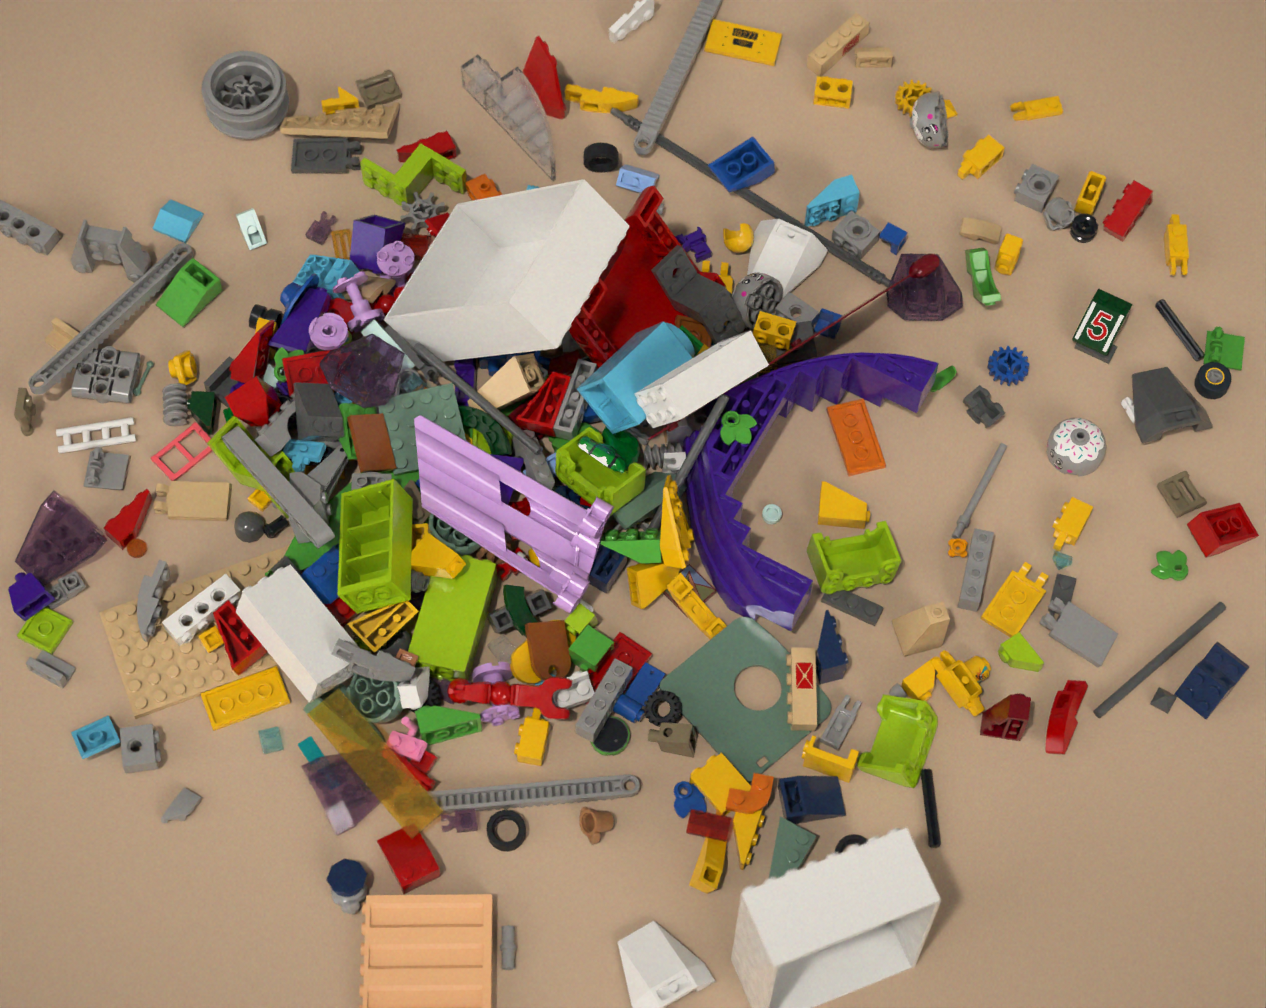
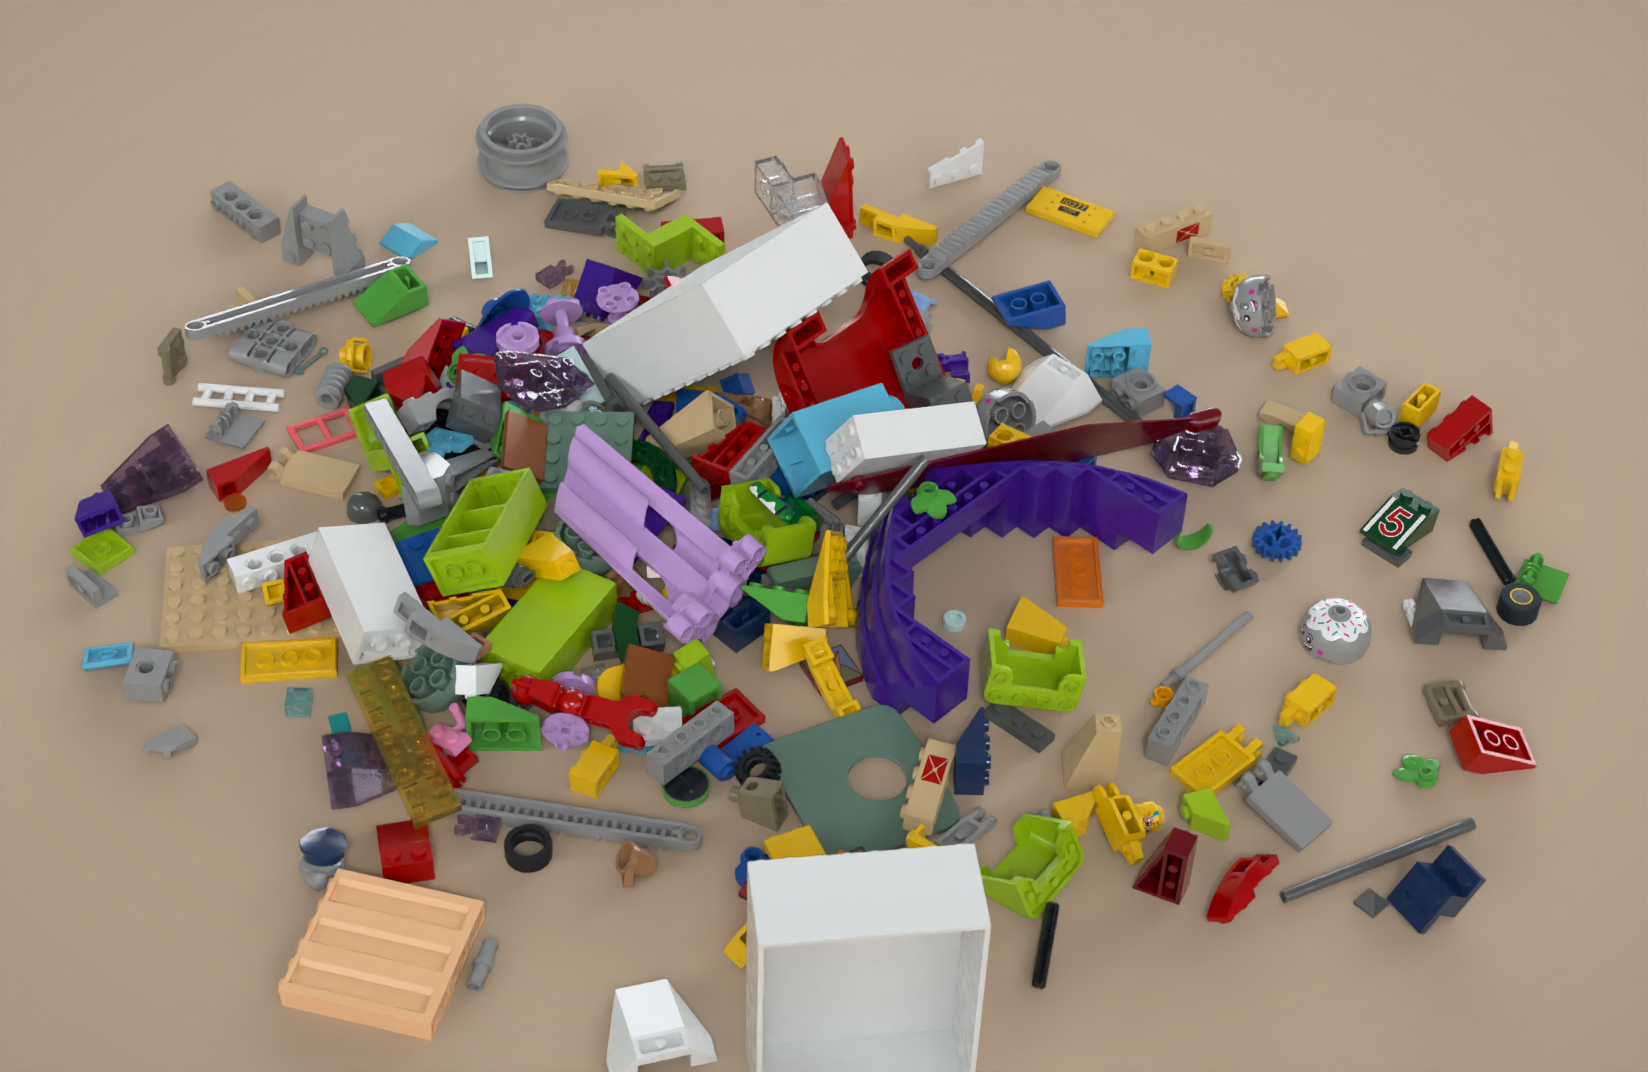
camera: 15 degrees right, 20 degrees down
(1037, 108) = (1381, 327): yellow hinge -> none

